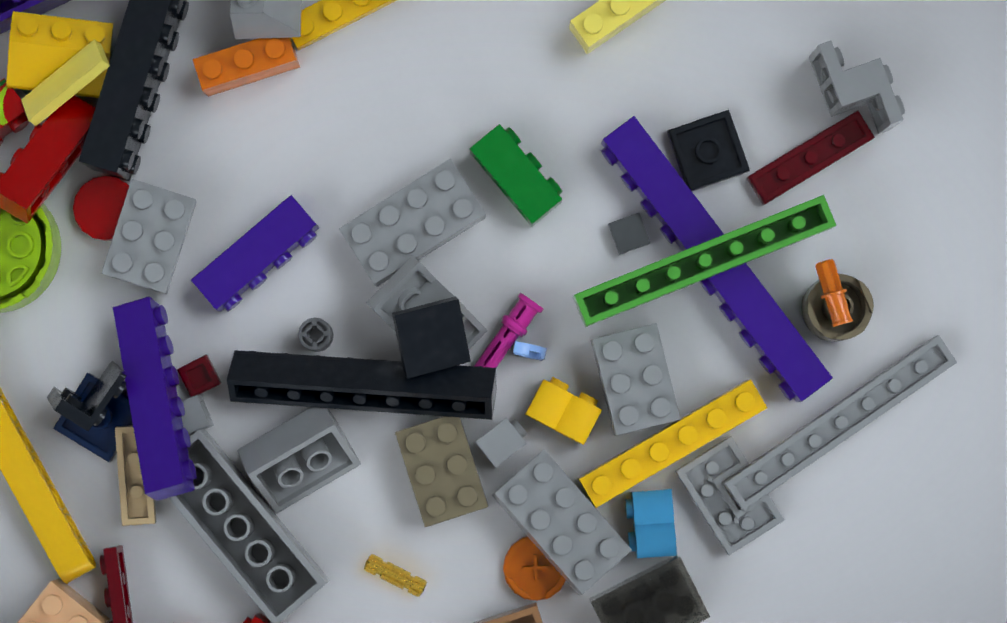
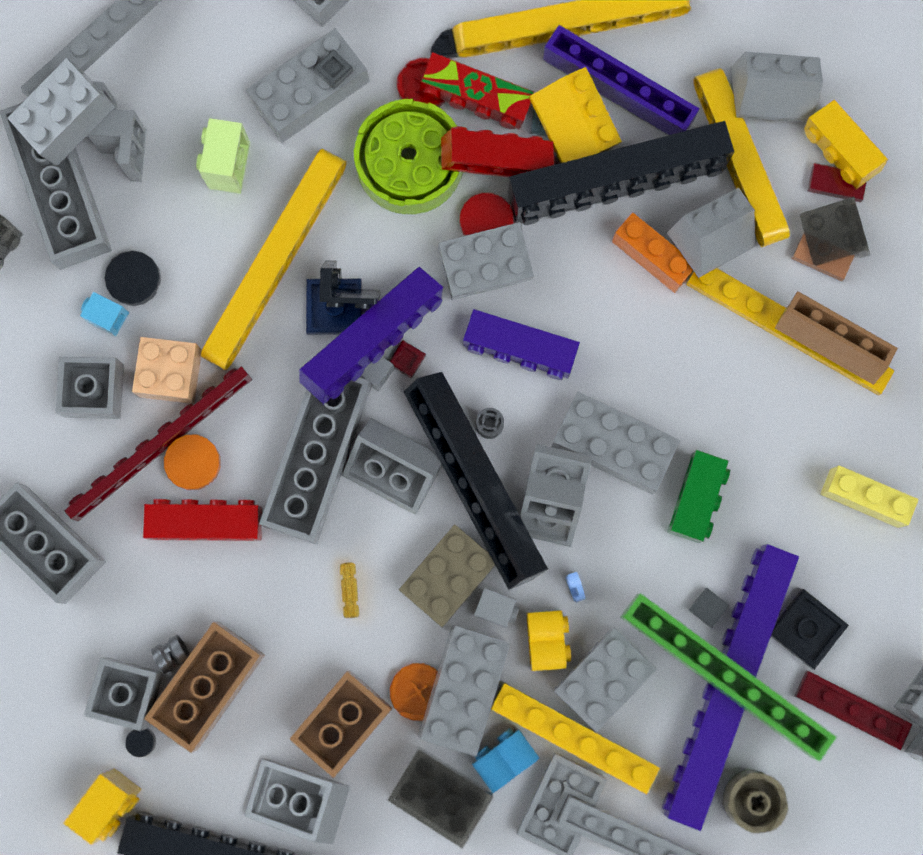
camera: 60 degrees right, 5 degrees down
(65, 82) = (558, 134): light yellow tile -> none
(134, 503) = (286, 370): tan plate -> none
(431, 337) = (541, 507): black tile -> none
(513, 326) = (587, 564): dark pink pin -> none
(833, 292) = (766, 791): orange axle -> none

